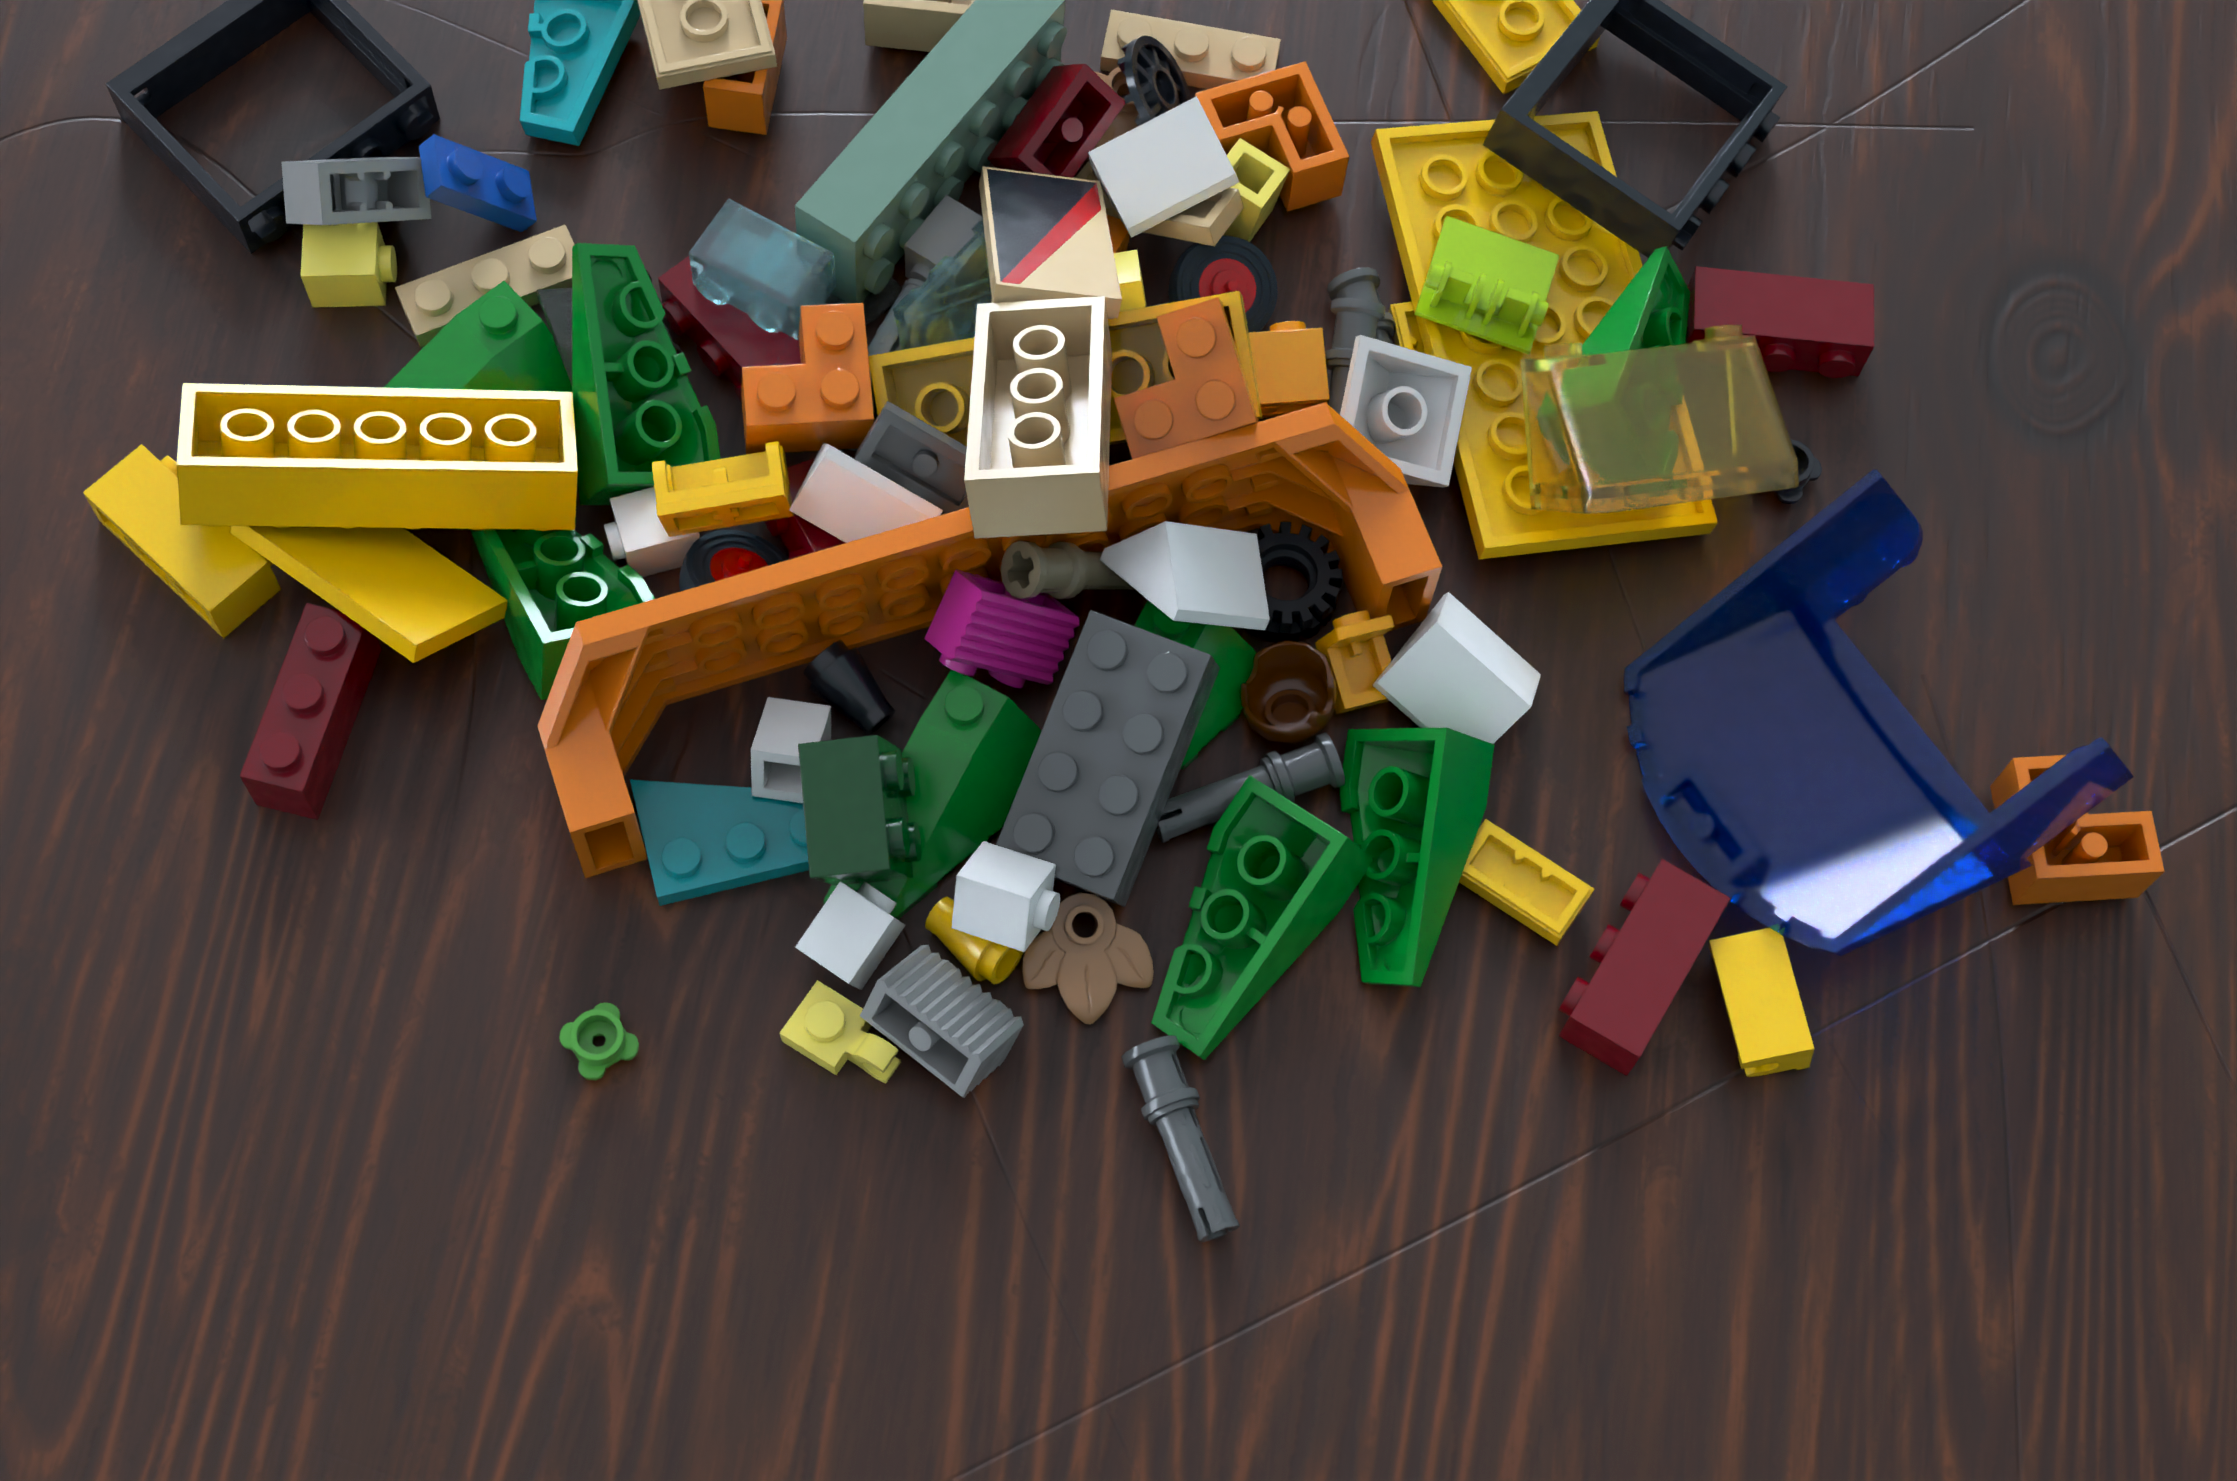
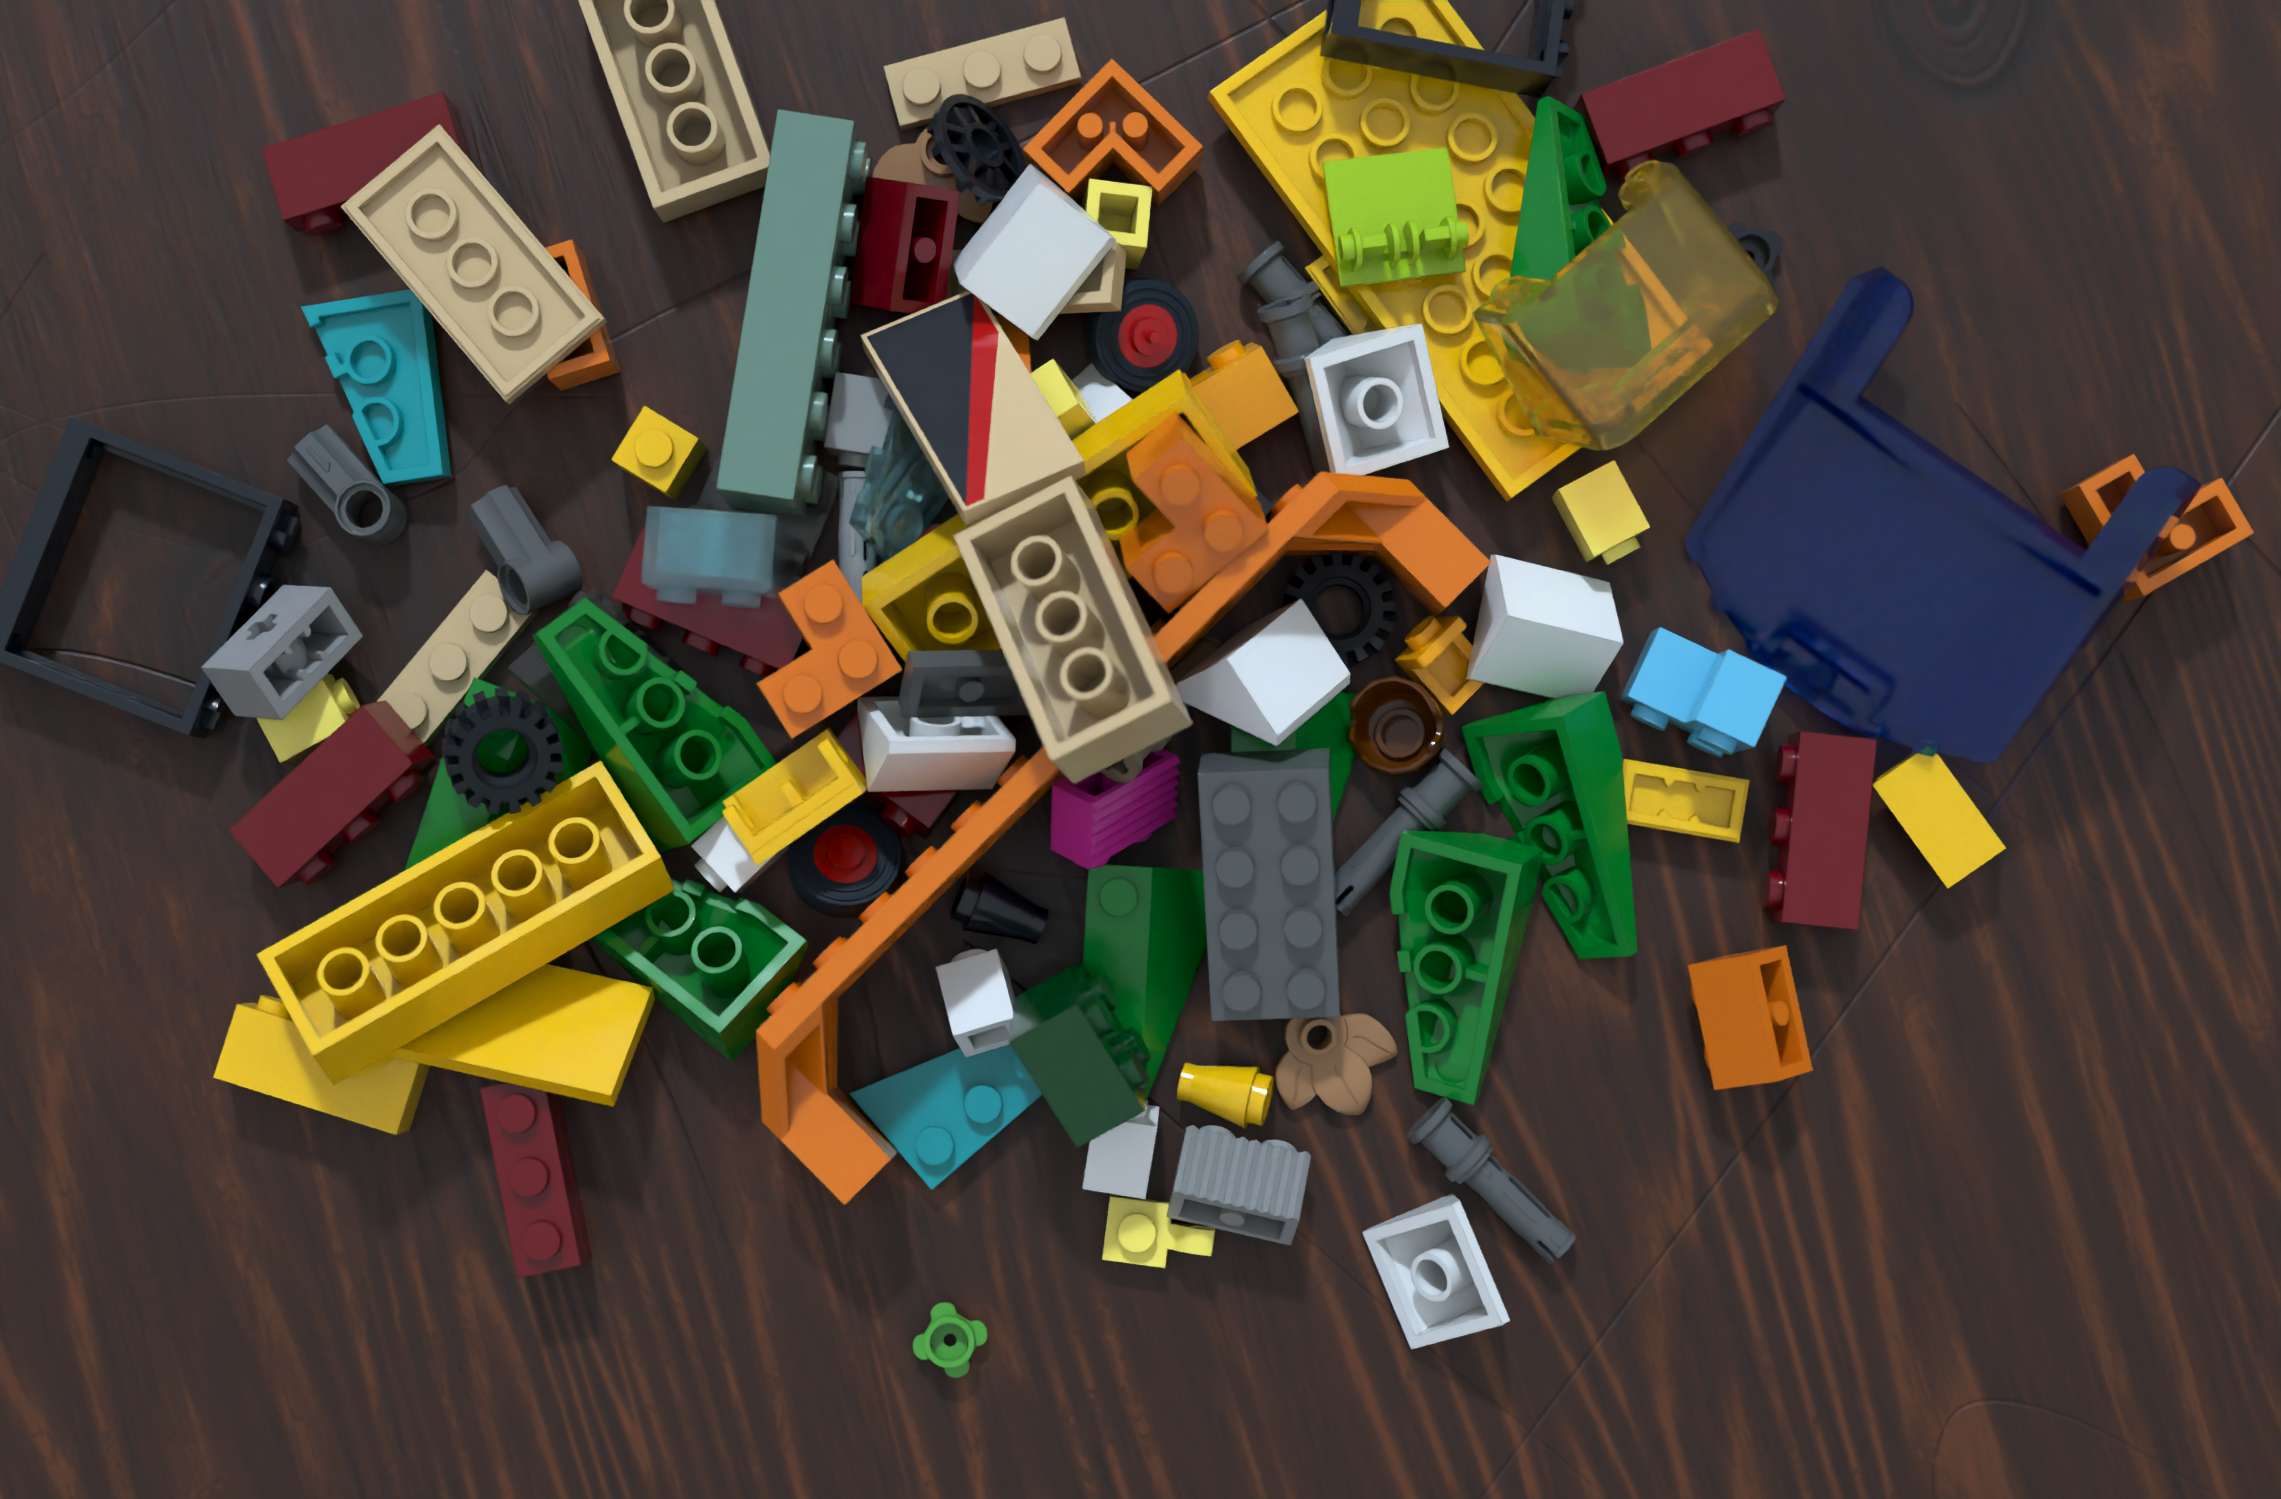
camera: 20 degrees left, 20 degrees up
(329, 323) = (333, 795): none -> dark red brick
(477, 183) = (386, 579): blue plate -> none
(485, 295) = (509, 787): none -> black tyre
(489, 108) = (347, 485): none -> dark grey piece
(603, 207) = (529, 565): none -> dark grey piece
(763, 186) = (659, 453): none -> yellow brick
(1005, 896) = (1244, 1058): white brick -> none
(1088, 1193) = (1435, 1273): none -> white slope
(1500, 1094) = (1750, 1018): none -> orange brick
(1559, 607) = (1601, 514): none -> light yellow brick
(1584, 792) = (1708, 694): none -> medium azure brick

